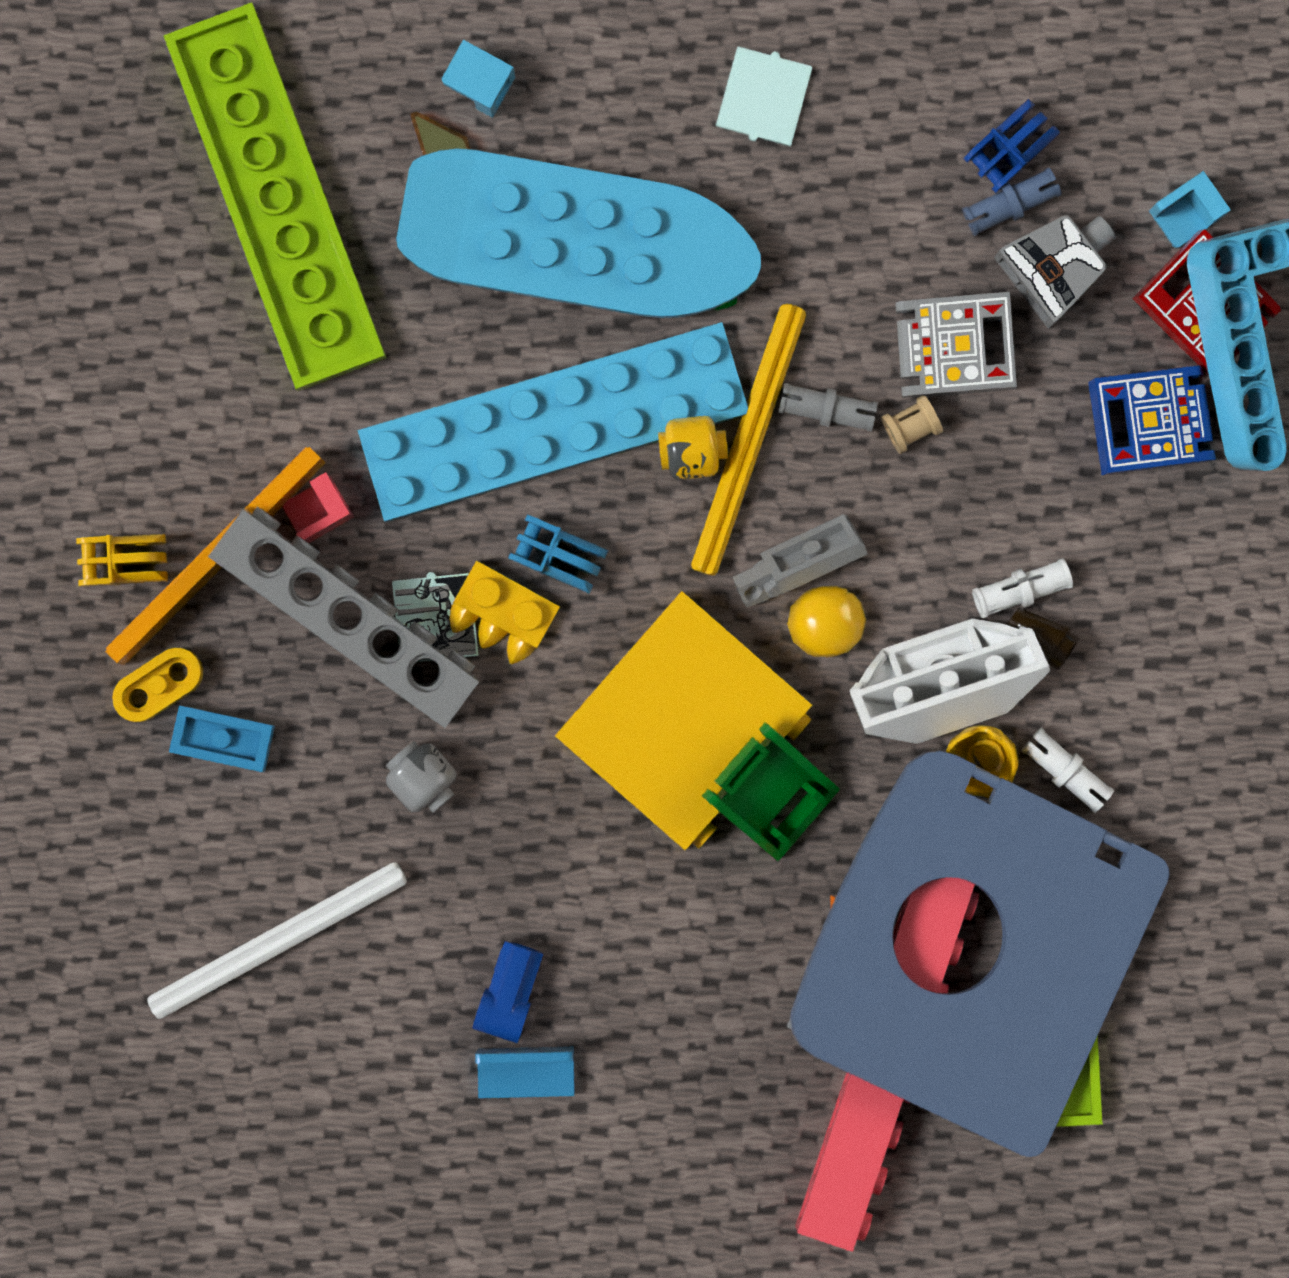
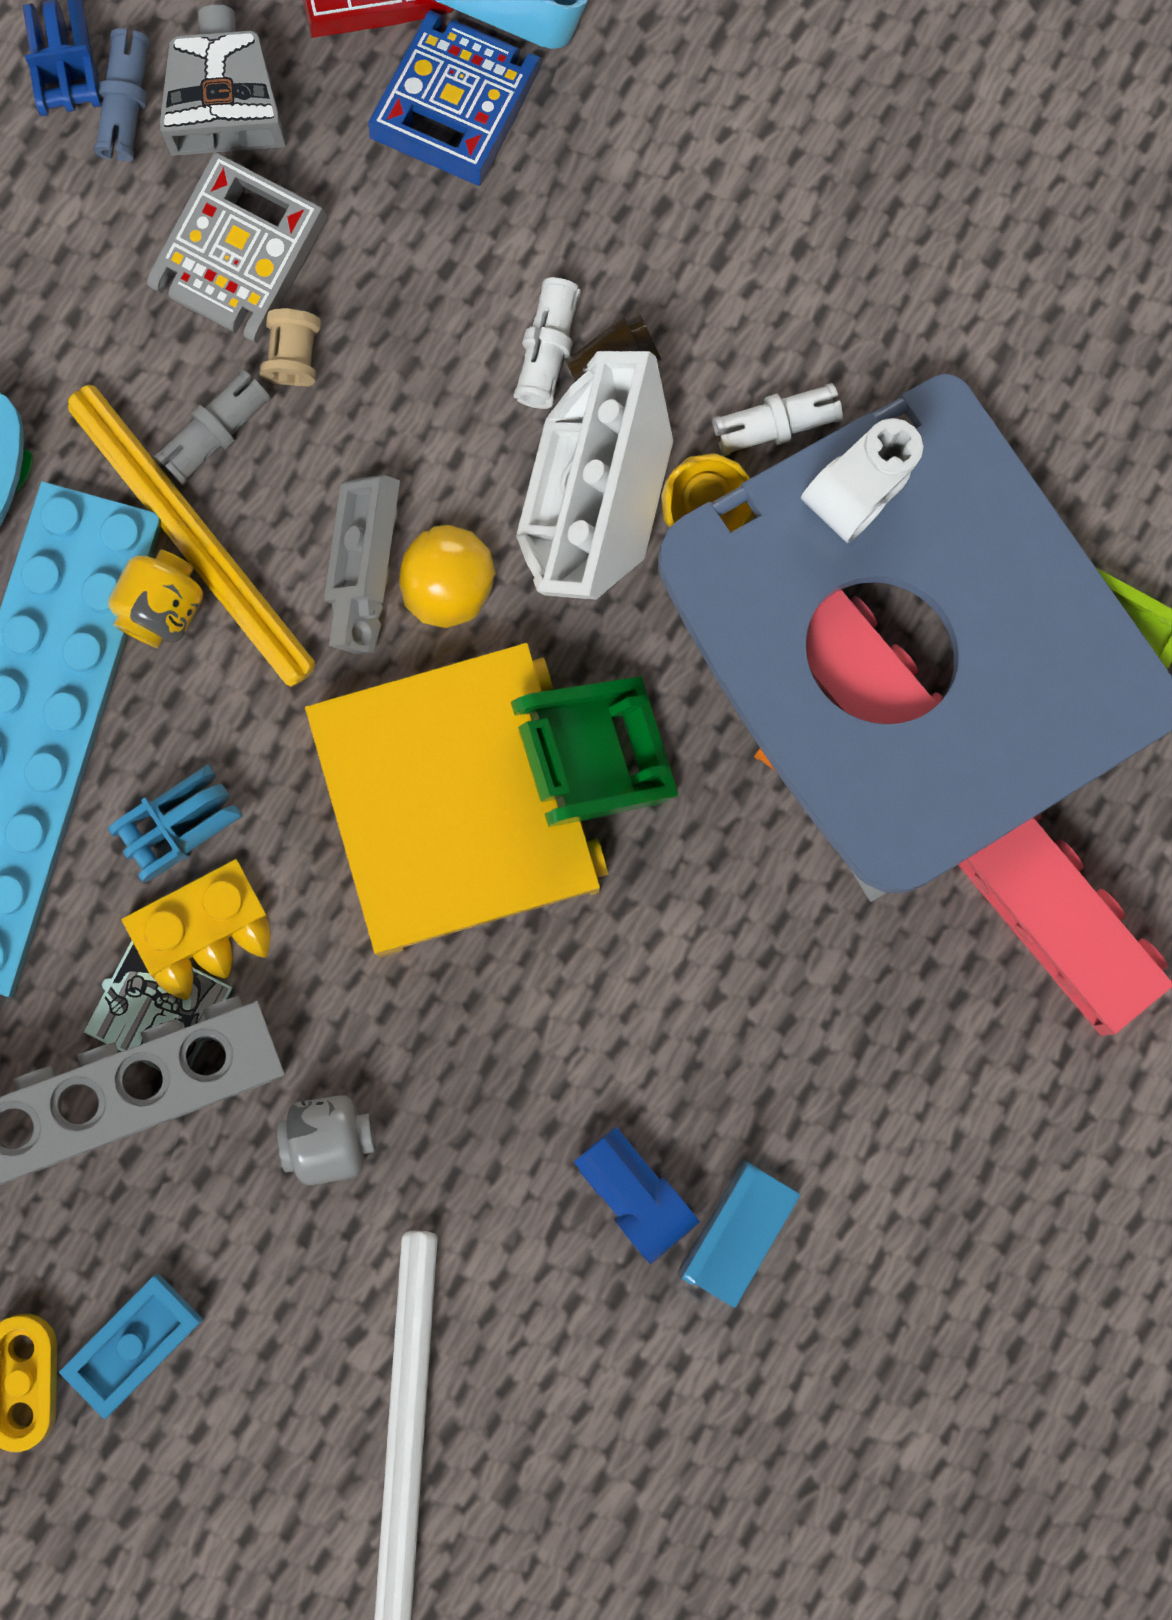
camera: 65 degrees left, 5 degrees down
(1047, 856) = (860, 482): none -> white piece

